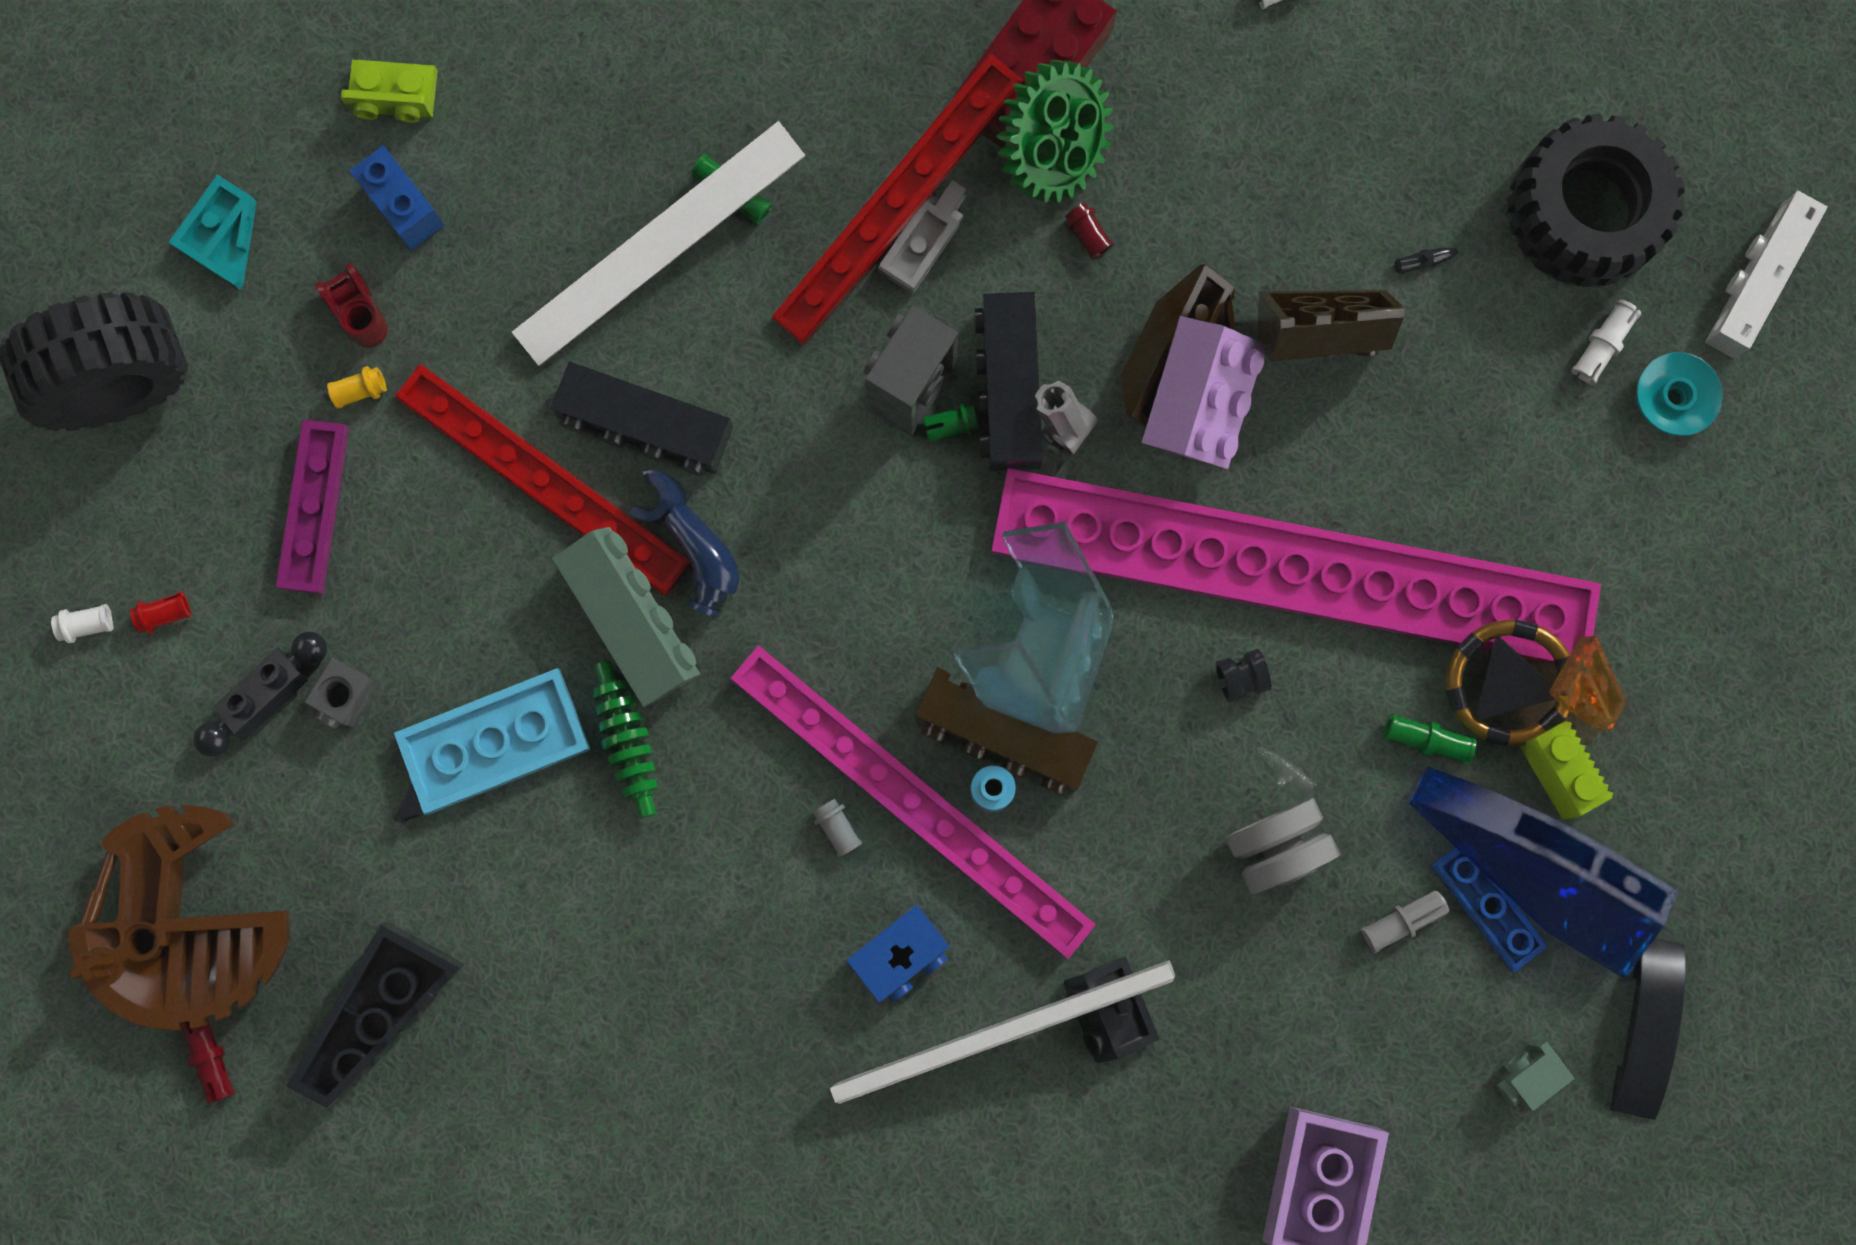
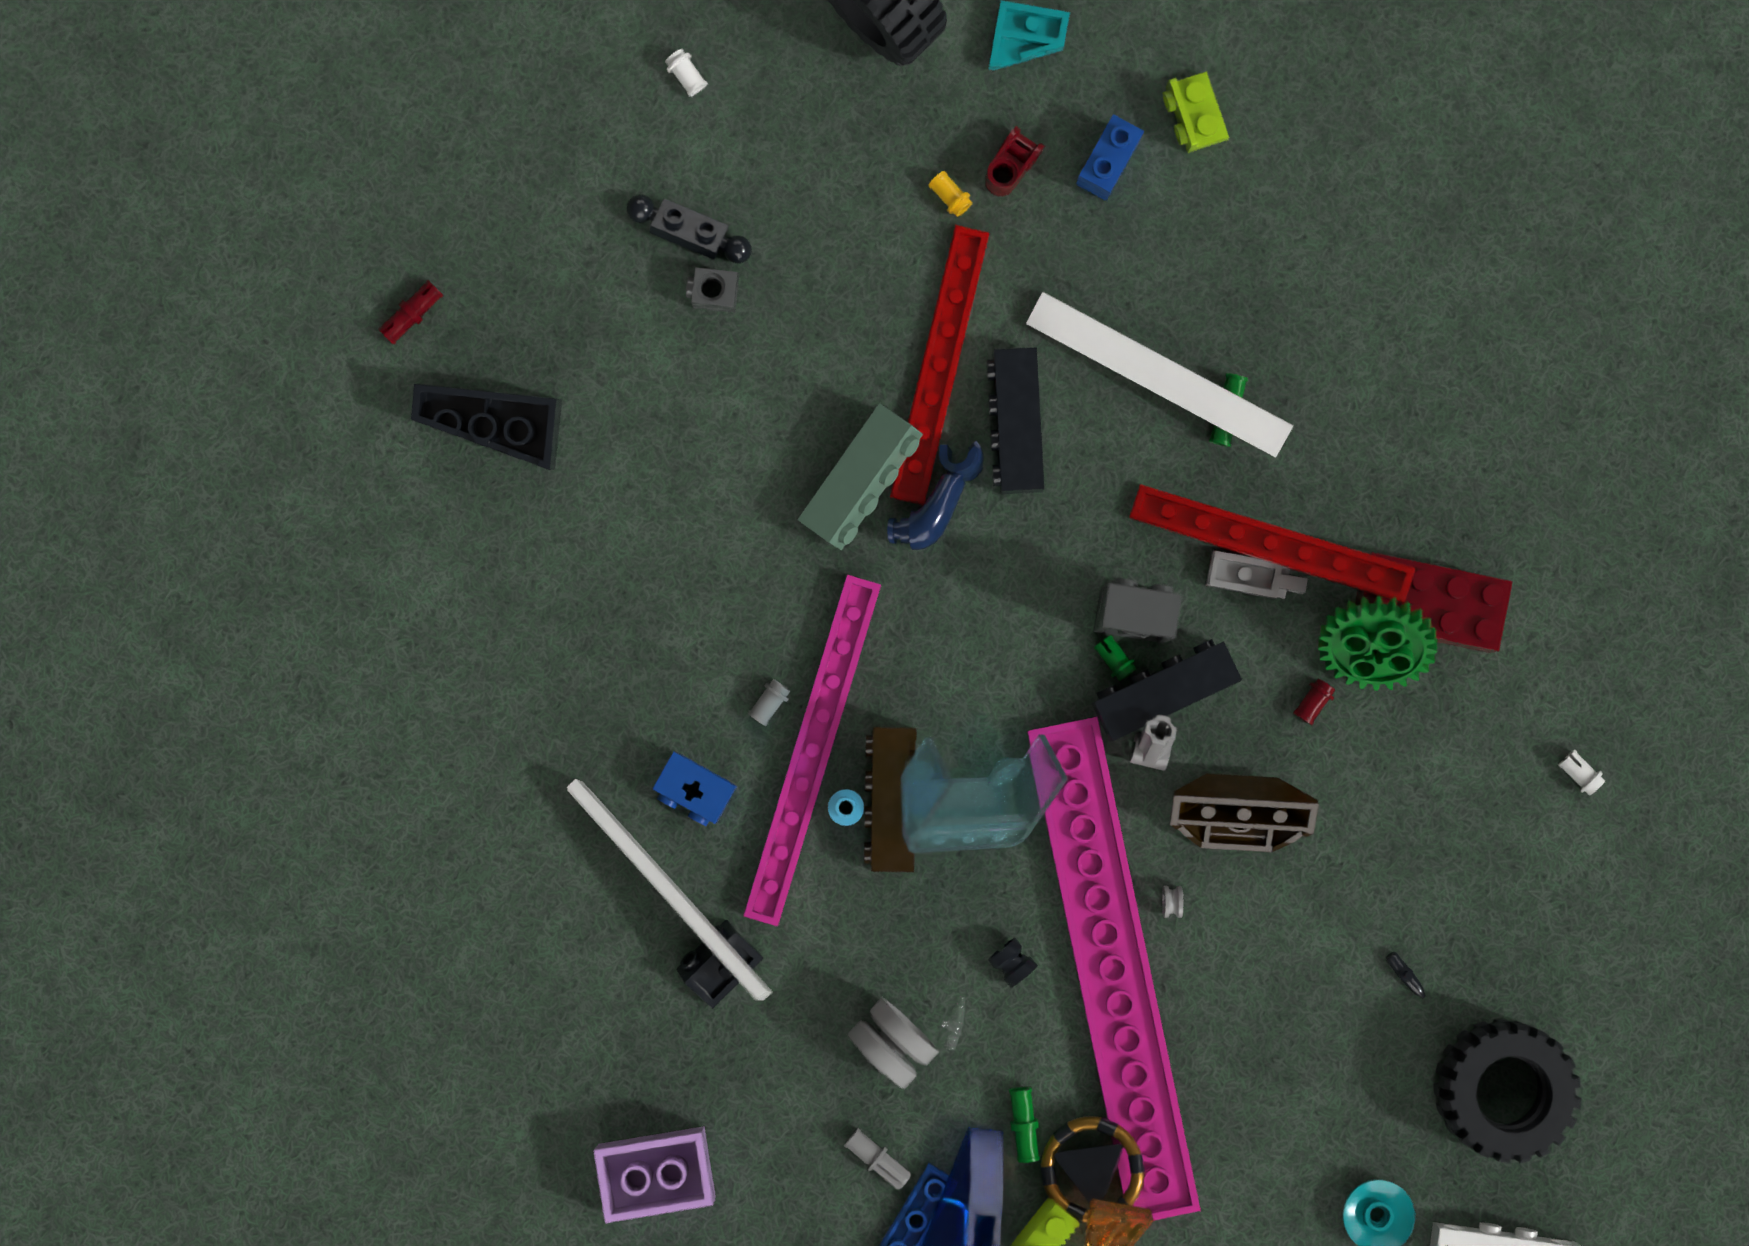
camera: 70 degrees right, 5 degrees up
(160, 612) = (718, 126): red pin -> none
(195, 962) = (473, 274): reddish brown piece -> none
(312, 507) = (845, 202): magenta plate -> none
(409, 808) = (653, 379): black piece -> none
(492, 741) = (726, 417): medium azure plate -> none
(625, 739) = (768, 515): green piece -> none
(1204, 392) = (1215, 844): lavender brick -> none
(1246, 472) = (1172, 901): none -> light grey bush
(1327, 323) = (1315, 916): dark brown wedge -> none
(1606, 341) = (1398, 1143): white pin -> none

